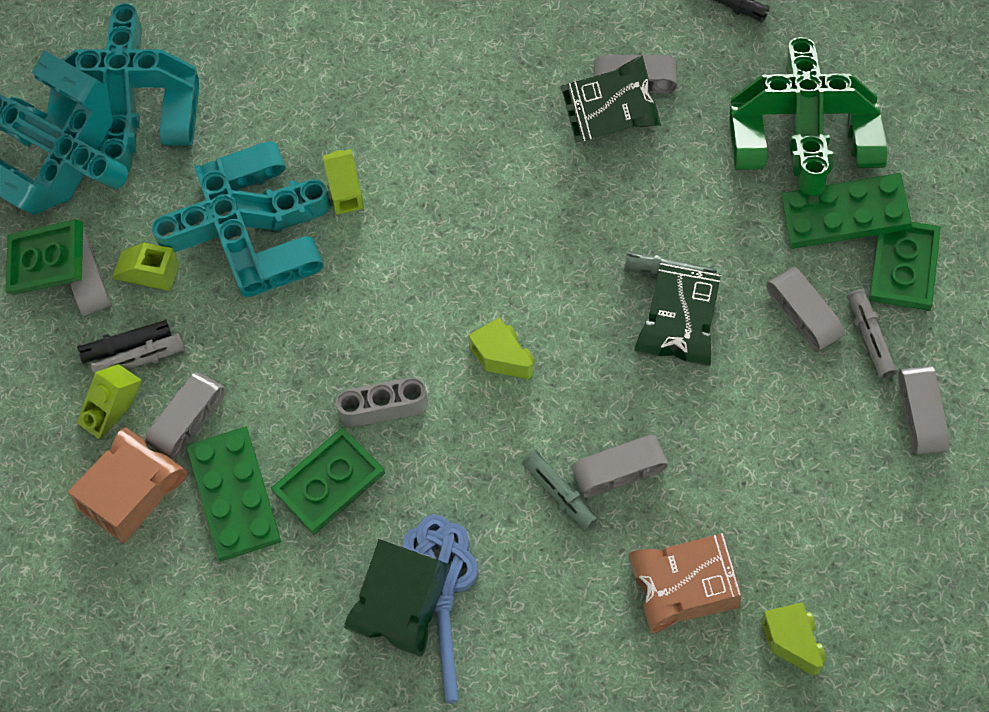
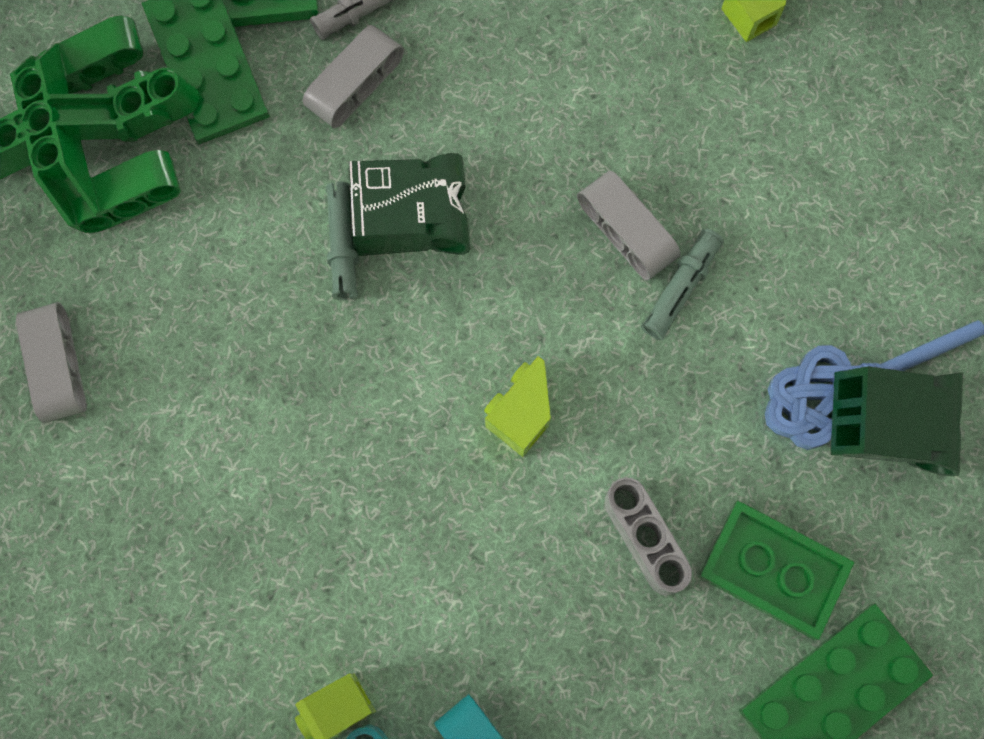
camera: 110 degrees left, 10 degrees up
(610, 102) = (112, 373): dark green piece -> none
(686, 581) = (745, 113): nougat piece -> none

